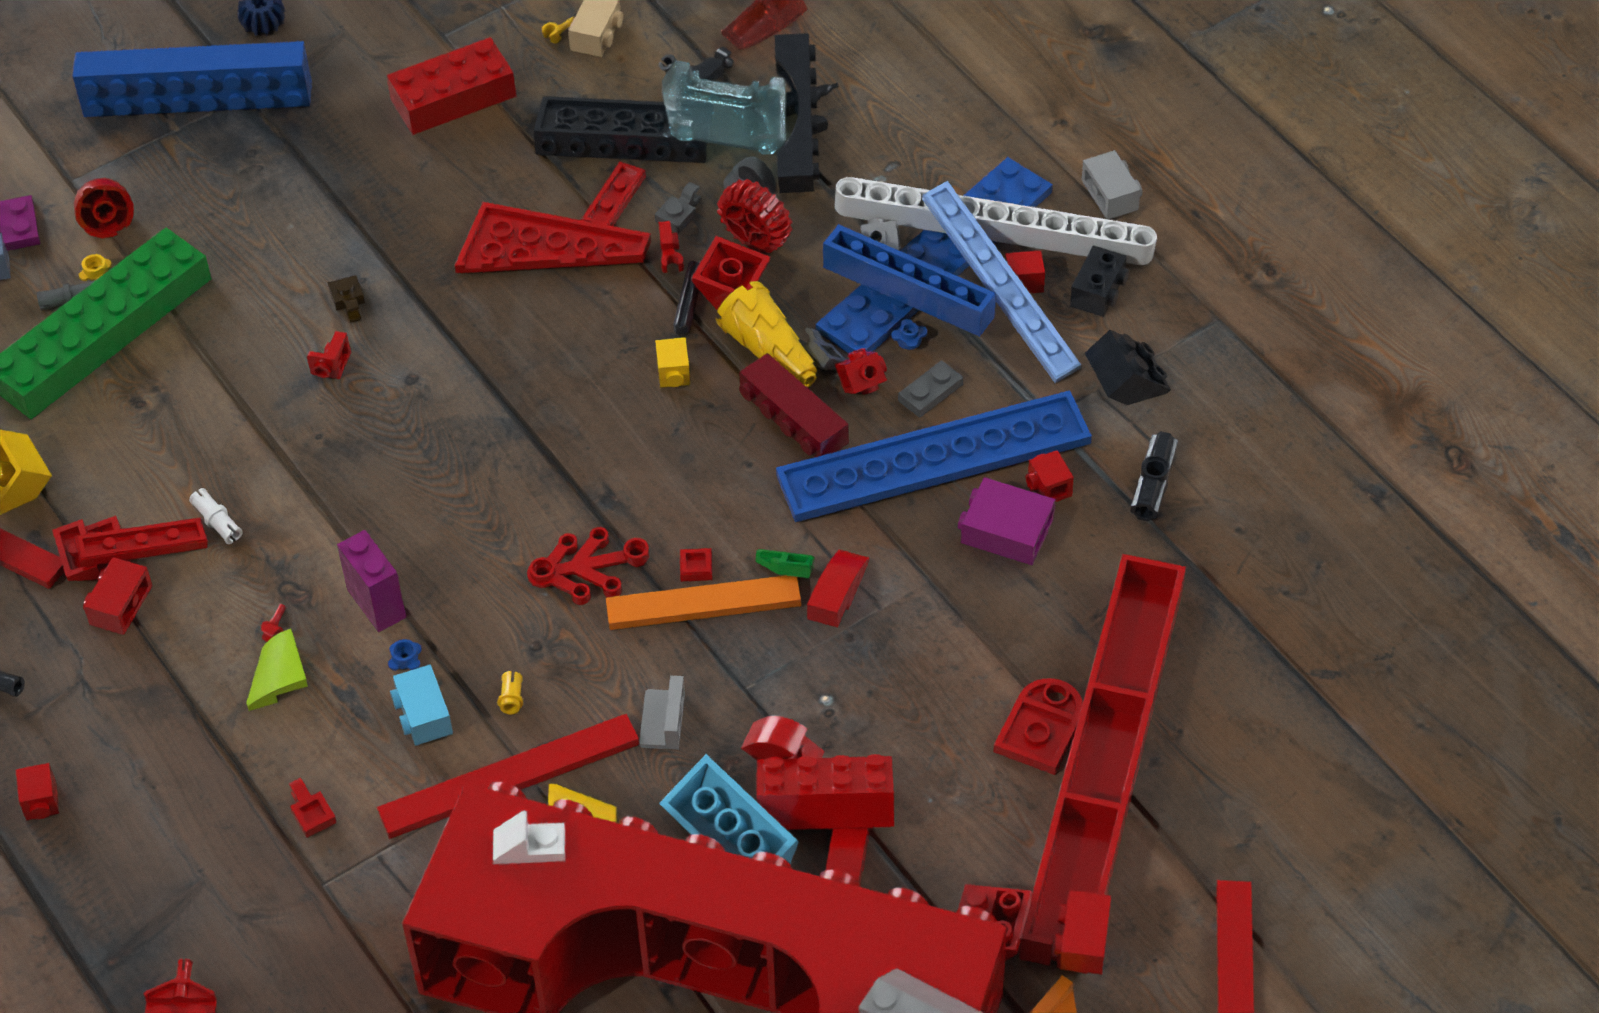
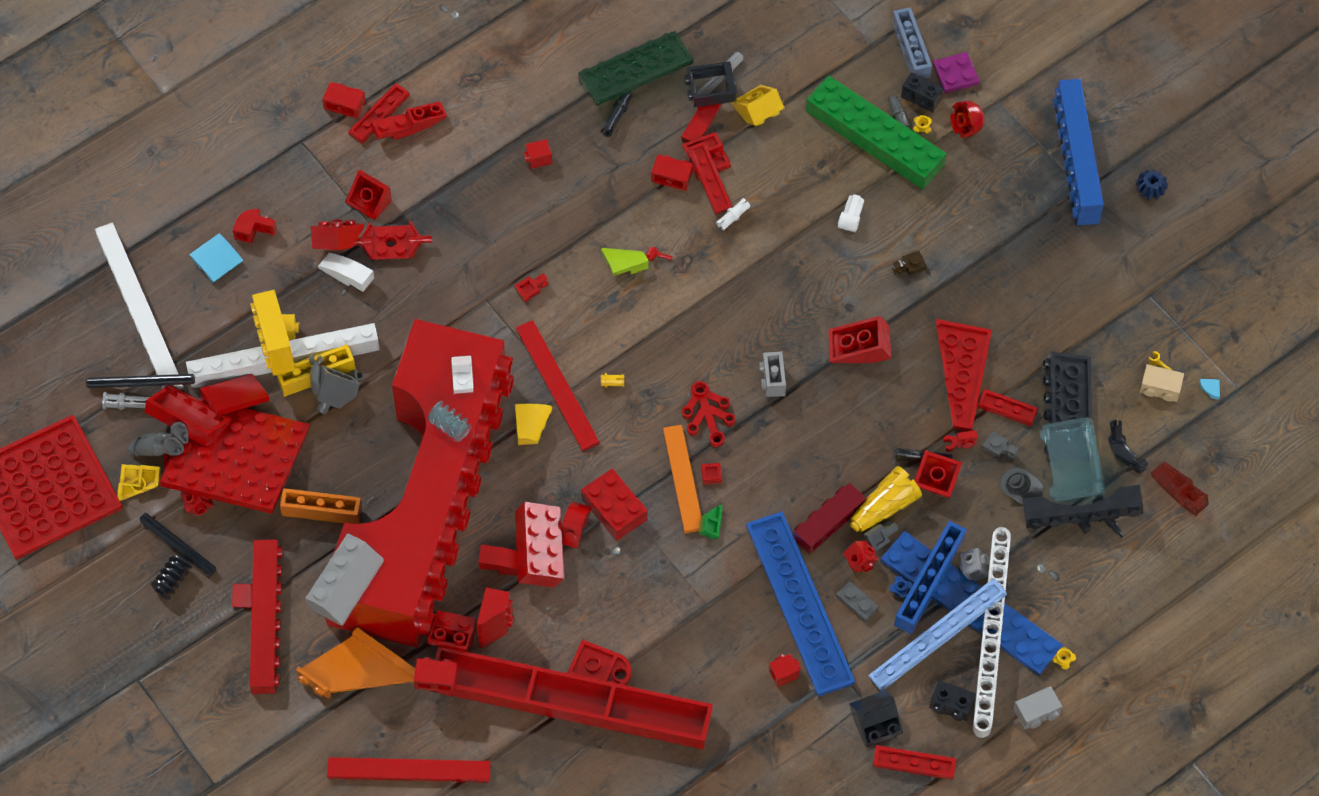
camera: 85 degrees right, 10 degrees up
(38, 261) = (921, 92): none -> black brick
(253, 364) = (850, 217): none -> white piece
(333, 360) = (857, 261): red bracket -> none
(371, 580) = (678, 295): magenta brick -> none
(404, 648) = (641, 319): blue plate -> none
(421, 704) = (598, 333): medium azure brick -> none
(451, 85) = (1094, 302): red brick -> none
(482, 359) = (860, 342): none -> red slope
(531, 465) = (774, 375): none -> light grey brick
(626, 855) = (448, 422): none -> clear light blue piece
(663, 716) = (599, 462): light grey panel -> none
(672, 362) = (864, 449): yellow brick -> none
(717, 807) = (510, 493): medium azure slope -> none
(748, 688) = (614, 504): none -> red brick
(754, 216) = (983, 485): red gear -> none
(836, 588) = (694, 550): red slope -> none
(967, 849) = (494, 616): none -> red slope
(1006, 520) = (748, 645): magenta brick -> none
(1028, 157) = (1064, 652): none -> yellow plate
(1029, 269) = (956, 654): red brick -> none
(1154, 476) = (801, 734): black piece -> none
(1197, 331) = (914, 762): none -> red plate

